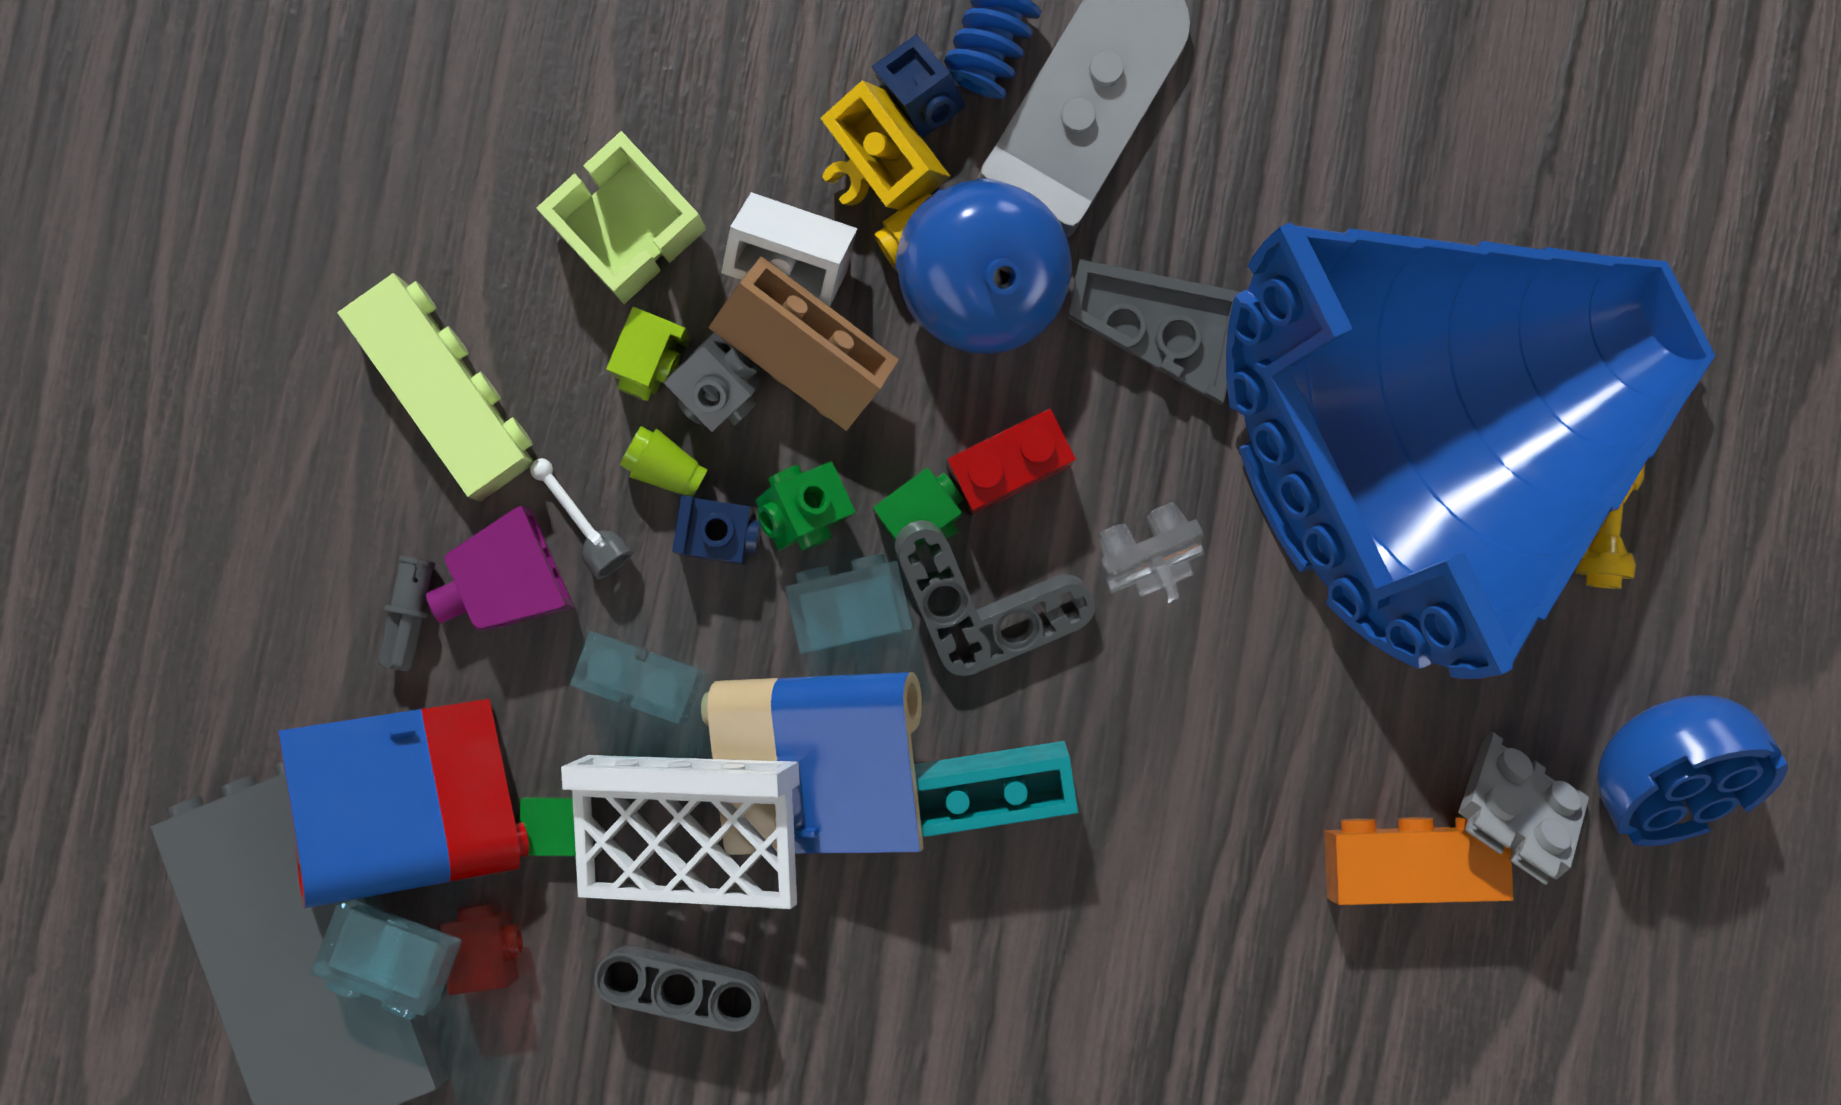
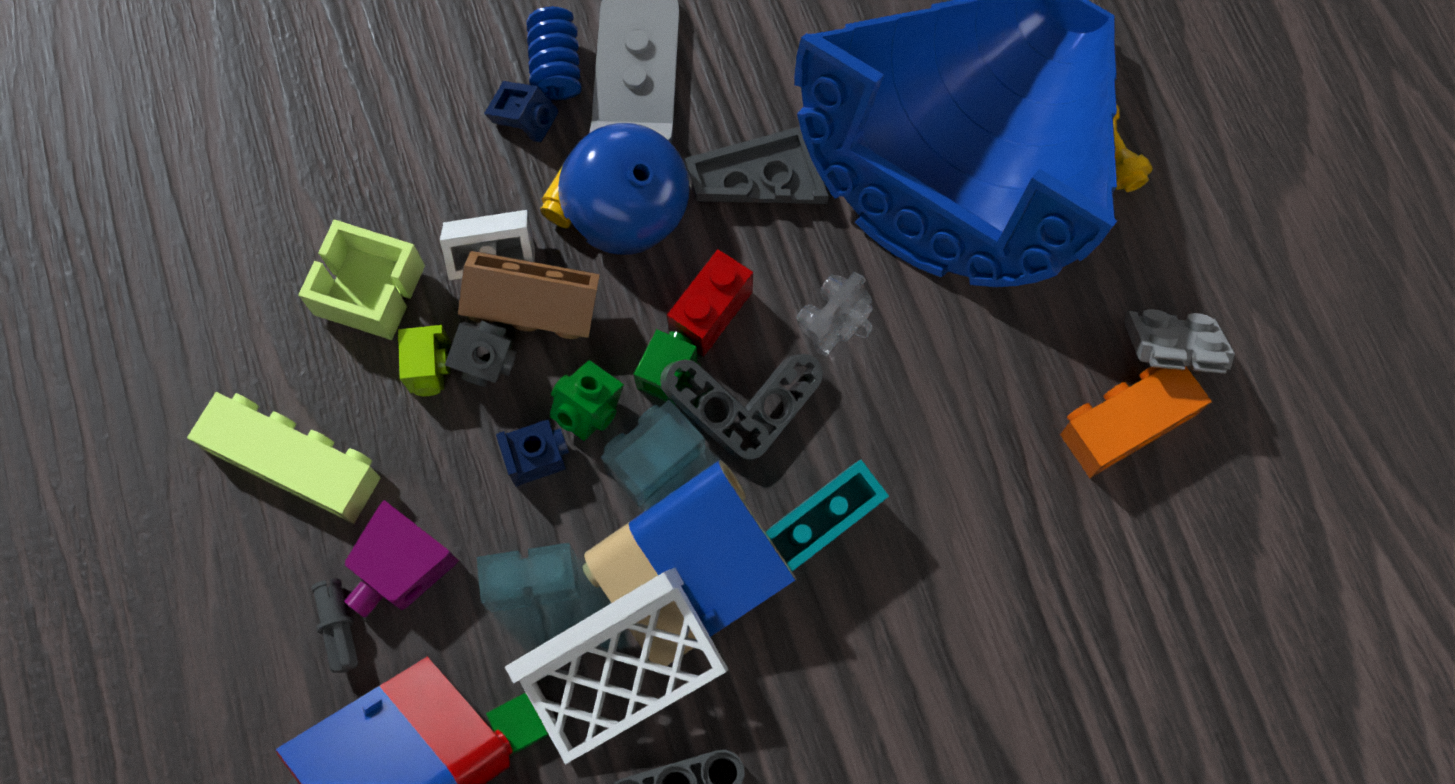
camera: 30 degrees left, 15 degrees down
(602, 550) = (458, 507): hinge -> none
(662, 463) = (470, 426): lime cone -> none
(881, 150) = (517, 155): yellow brick -> none
(1689, 752) = (1259, 256): blue cylinder -> none

